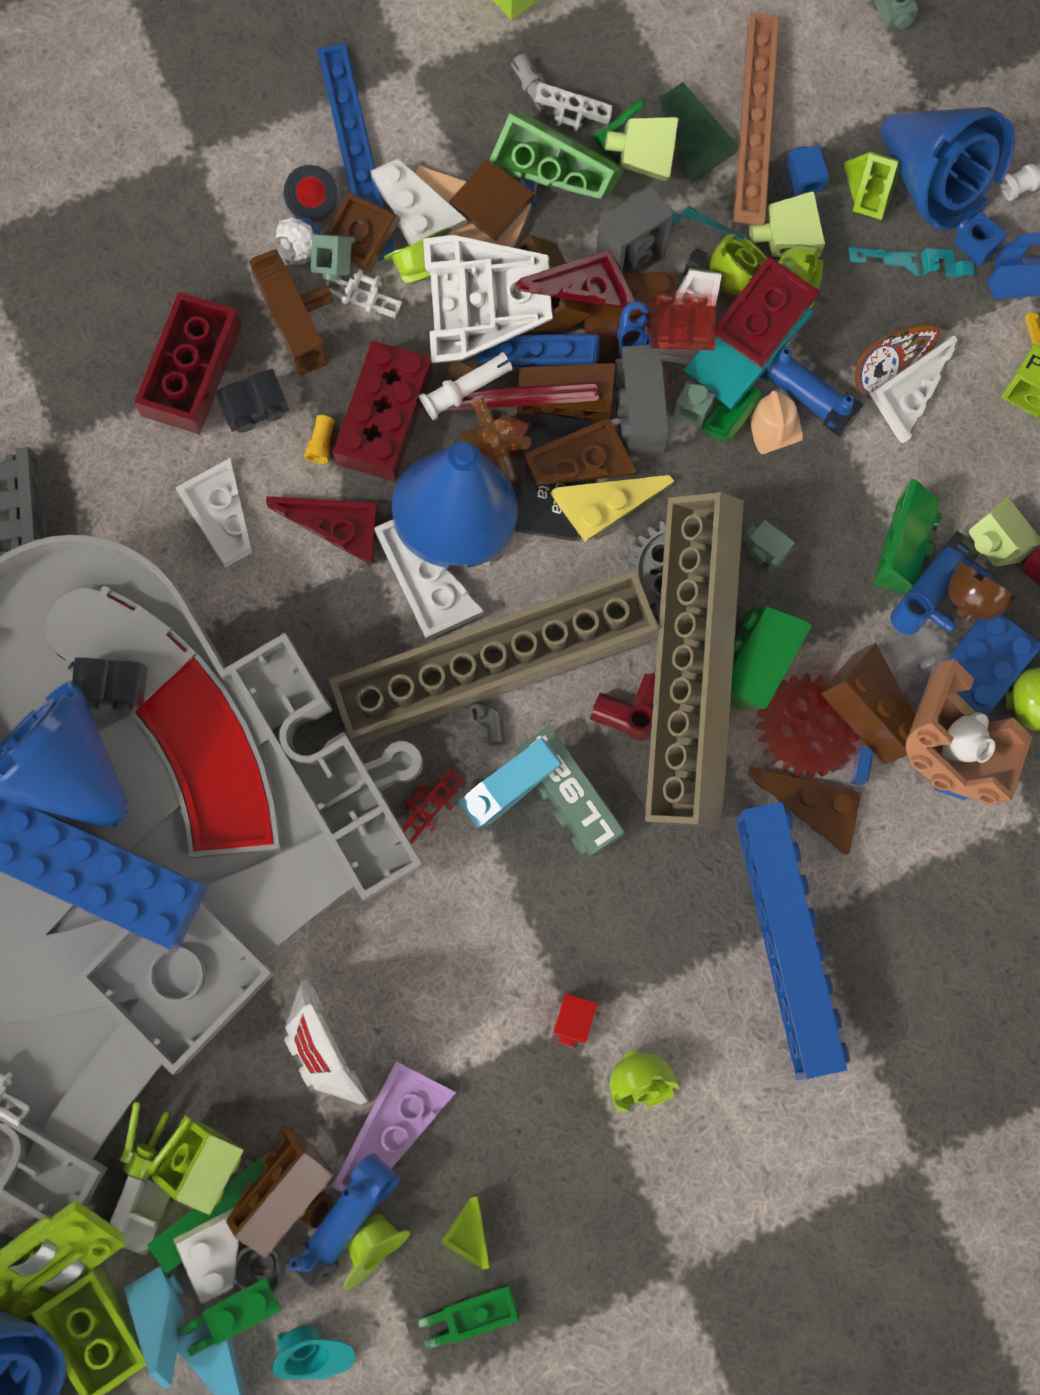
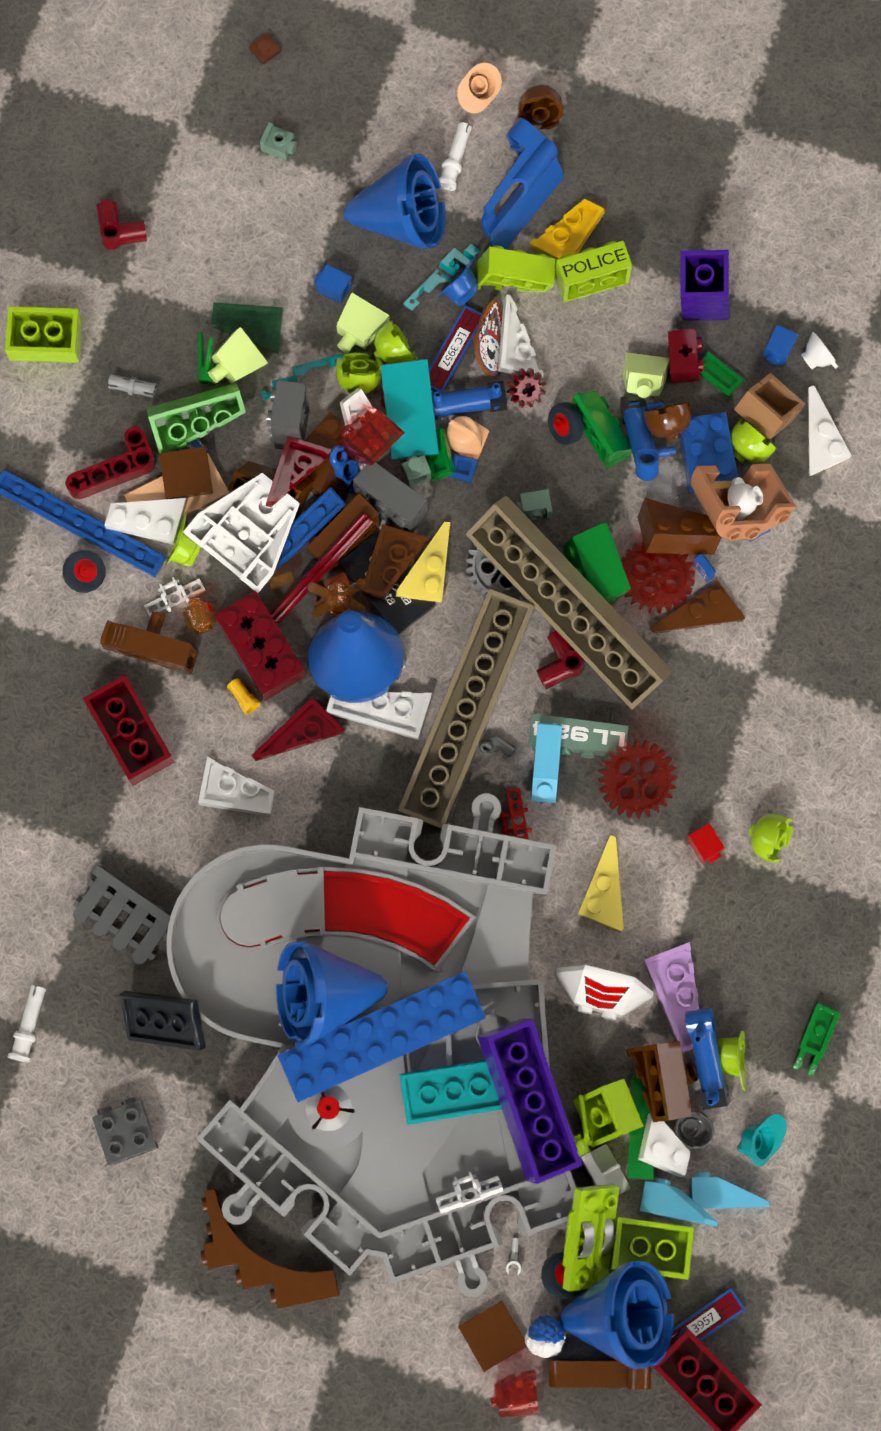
camera: 45 degrees left, 0 degrees up
(75, 983) = (448, 1092): none -> teal tile
(111, 683) = (301, 925): black brick -> none
(124, 1071) = (529, 1100): none -> dark purple brick
(234, 1315) = (707, 1160): green hinge -> none
(252, 401) = (184, 714): black brick -> none
(296, 239) = (108, 603): white piece -> none
(331, 255) = (137, 600): sand green brick -> none
(360, 330) = (199, 616): none -> clear orange head
(368, 224) = (135, 564): reddish brown tile -> none
(397, 119) = (110, 466): none -> dark red beam
(430, 960) = (603, 896): none -> light yellow wing
(453, 392) = (289, 596): white pin -> none
(467, 1235) = (770, 1000): lime slope -> none
(584, 102) = (159, 383): white piece -> none
(599, 910) = (659, 776): none -> clear red gear
(697, 260) = (332, 395): black tile -> none
(741, 448) = (464, 468): none -> blue tile
(756, 119) = (275, 282): nougat plate -> none
(765, 312) = (404, 384): dark red tile -> none
(791, 942) = (766, 690): blue brick -> none
(846, 336) = (453, 349): none -> tile
(872, 182) = (374, 256): lime slope -> none
(874, 423) = (533, 390): none -> dark red gear
(879, 501) = (565, 423): none -> black wheel
(921, 287) = (463, 287): none -> blue piece
(984, 227) = (467, 220): blue brick -> none
(987, 321) = (515, 269): none -> lime wedge

